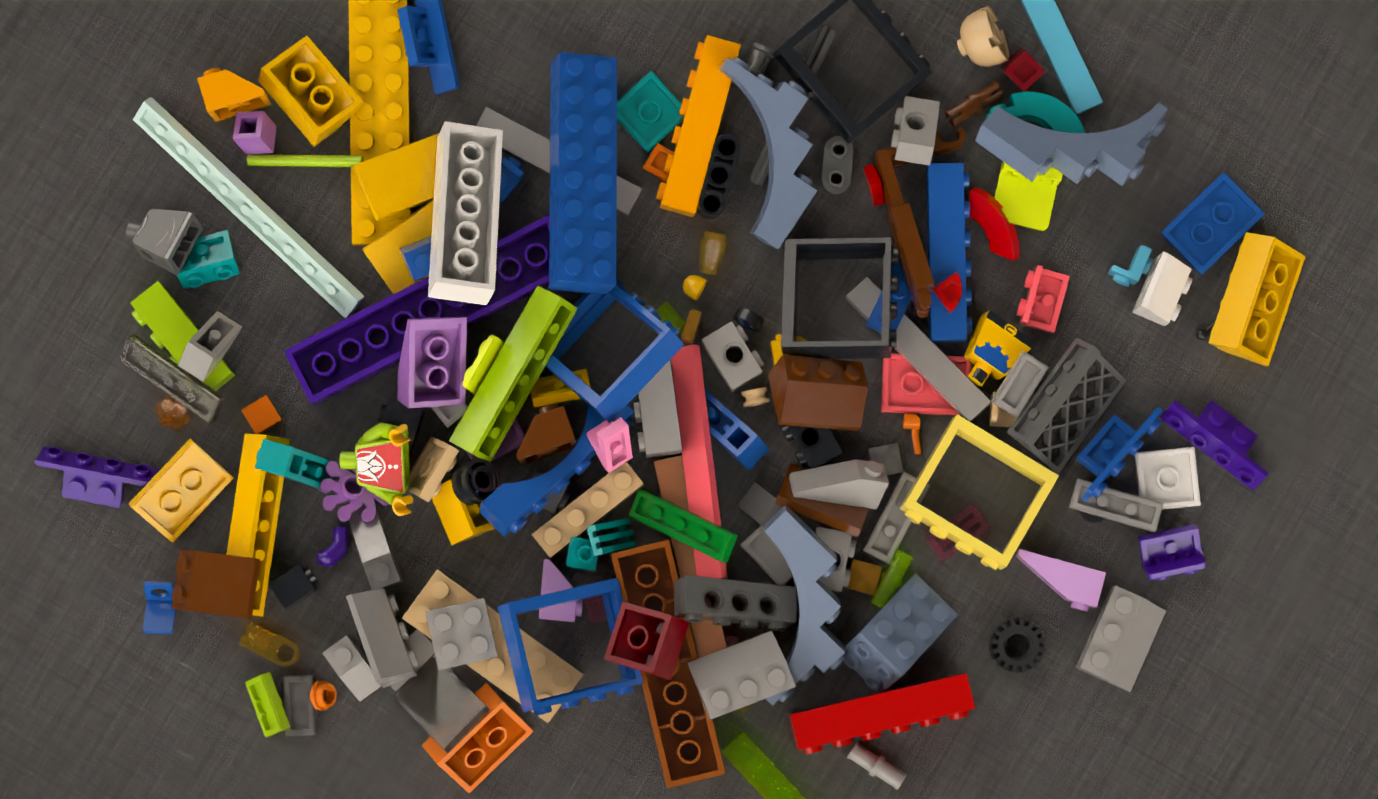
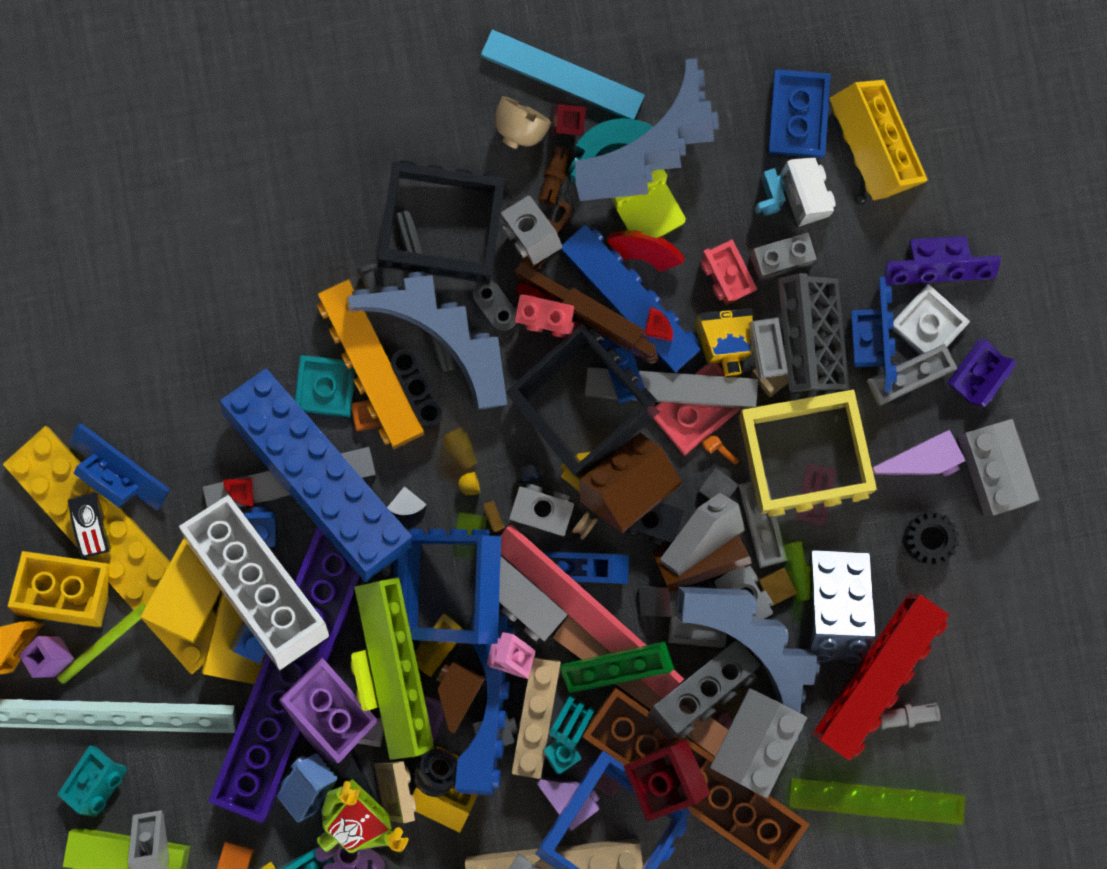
camera: 35 degrees left, 0 degrees up
(165, 237) = (47, 793): torso -> none
(366, 406) = (306, 787): none -> medium blue brick
(375, 59) = (88, 525): none -> slope
(513, 135) = (241, 490): none -> red tile
(632, 258) = (406, 503): none -> white tile
(869, 206) = (546, 314): none -> coral bracket
(1097, 324) = (783, 256): none -> light grey brick

